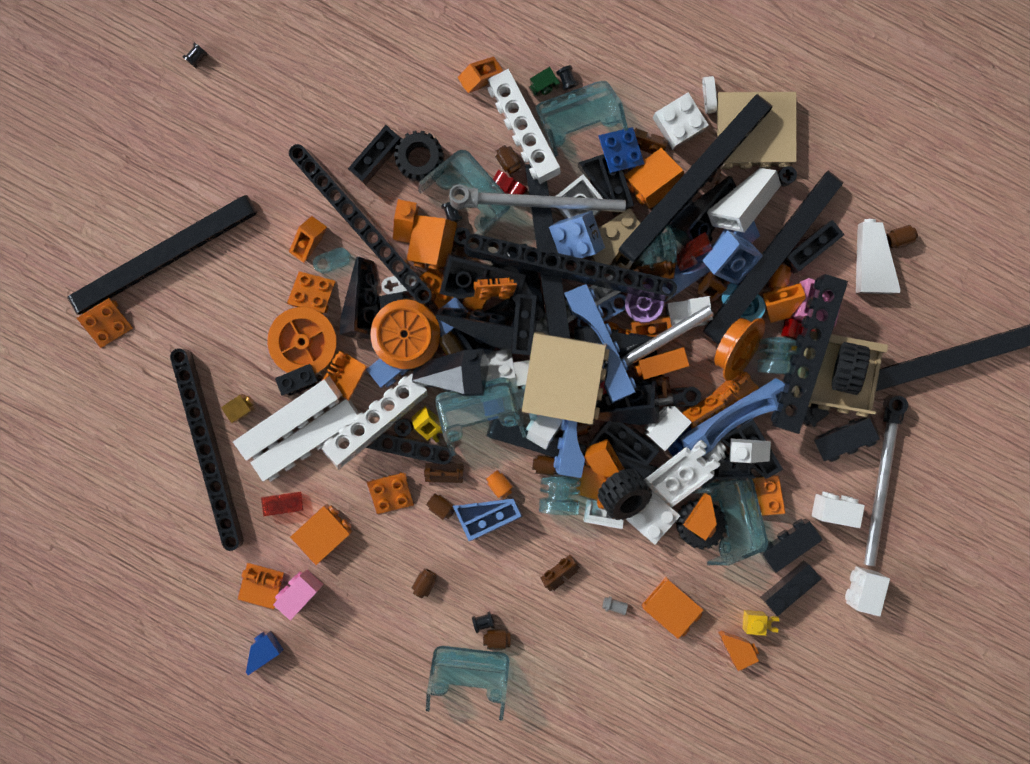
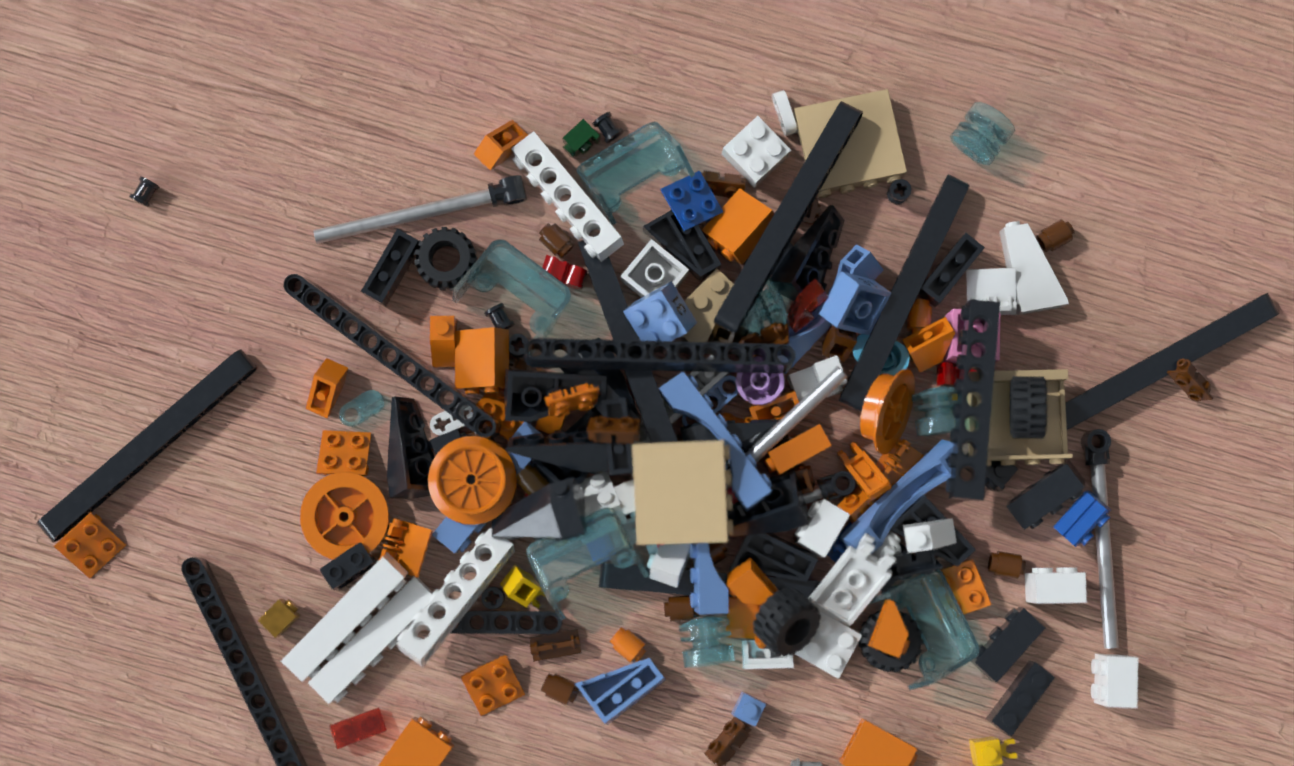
camera: 20 degrees left, 5 degrees down
(473, 198) = (523, 295): flat silver piece -> none
(479, 113) = (509, 191): none -> flat silver piece
(513, 316) = (625, 429): none -> reddish brown hinge
(581, 552) = (748, 708): none -> medium blue brick
(710, 391) = (865, 472): none -> orange hinge
(745, 202) = (856, 232): white slope -> none
(803, 484) = (1006, 564): none -> reddish brown brick
(843, 266) = (994, 286): none -> white hinge
(863, 143) = (982, 133): none -> clear light blue wheel
(871, 462) = (1083, 518): none -> blue brick
(981, 374) = (1190, 381): none -> reddish brown hinge

